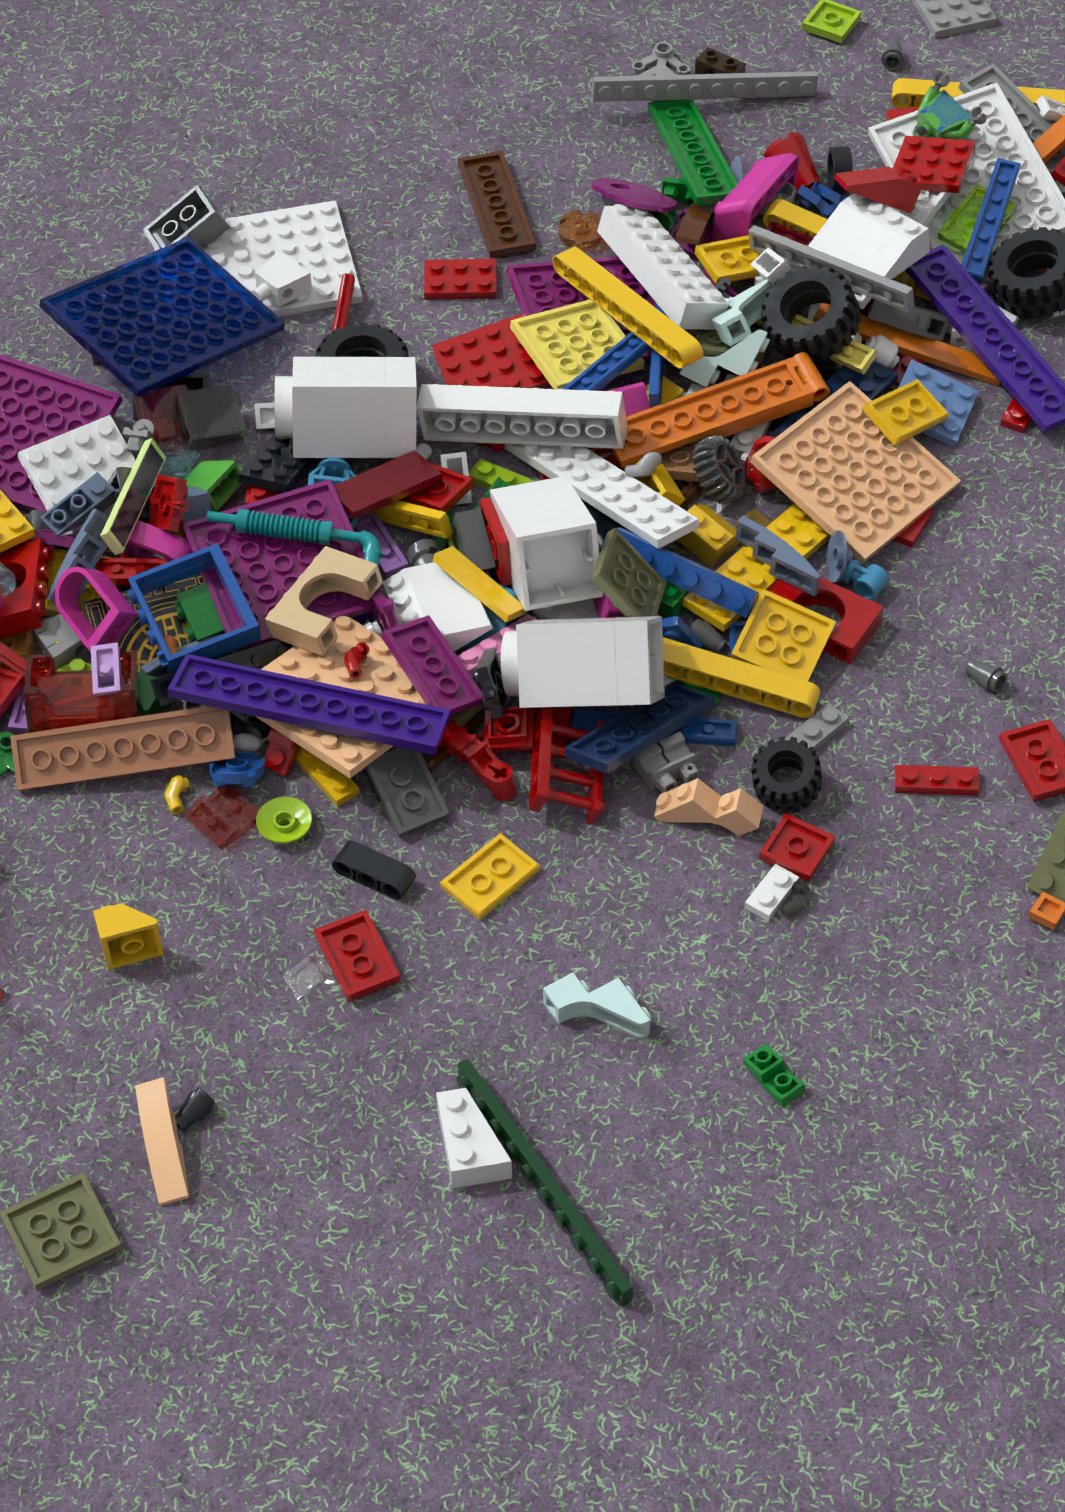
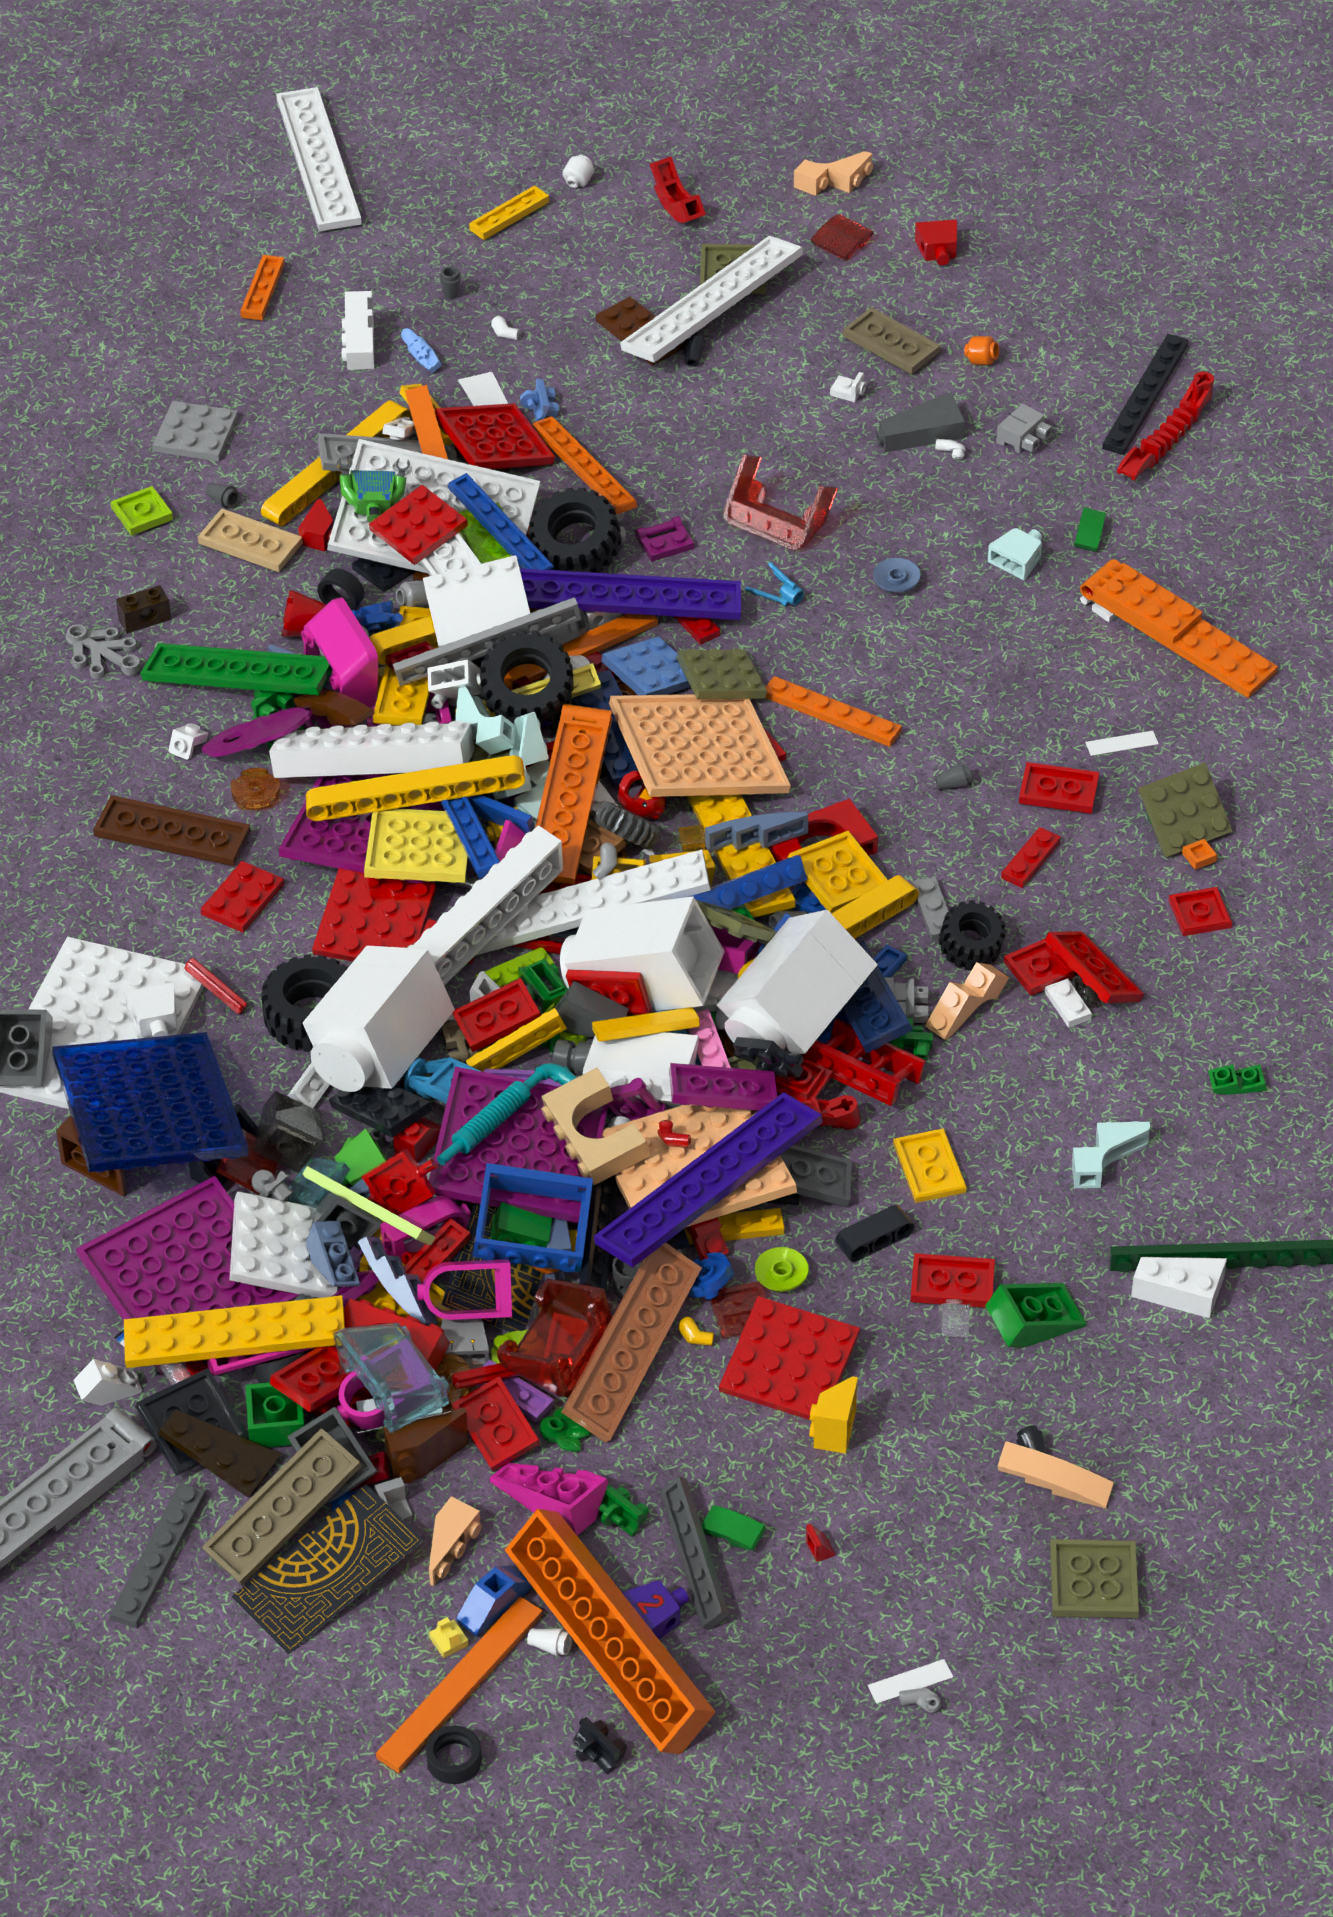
camera: 60 degrees left, 5 degrees down
(106, 669) = (558, 1305): lavender slope -> none
(184, 872) = (788, 1357): none -> red plate
(357, 1038) = (1033, 1312): none -> green slope
(386, 484) = (481, 1034): dark red tile -> none
(604, 163) = (185, 739): none -> white bracket
(628, 801) = (915, 1039): none -> green hips
(704, 86) = (159, 626): light grey plate -> none
(822, 888) = (1093, 967): none -> red plate
(838, 556) = (774, 797): sand blue dish -> none
(856, 94) = (250, 540): none -> tan plate
(866, 581) = (806, 797): dark azure piece -> none
(884, 185) = (439, 557): red slope -> none
(905, 412) = (663, 682): yellow tile -> none
(964, 450) = (721, 674): none -> olive plate
(976, 946) = (1200, 911): none -> red tile
(996, 552) = (832, 711): none -> orange plate

